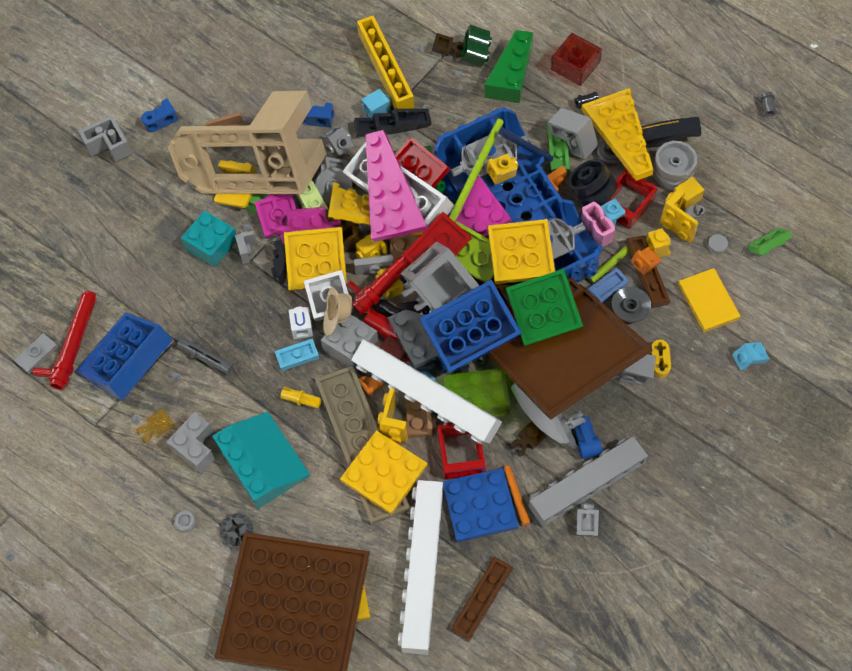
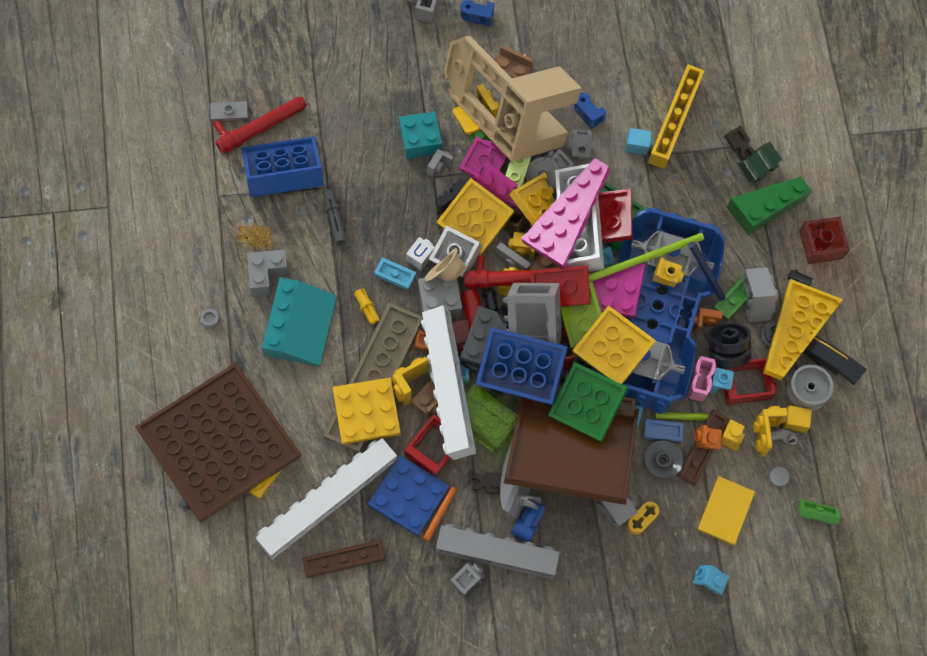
camera: 35 degrees right, 5 degrees up
(227, 525) = (244, 351): dark grey gear -> none
(396, 122) = (637, 166): black slope -> none

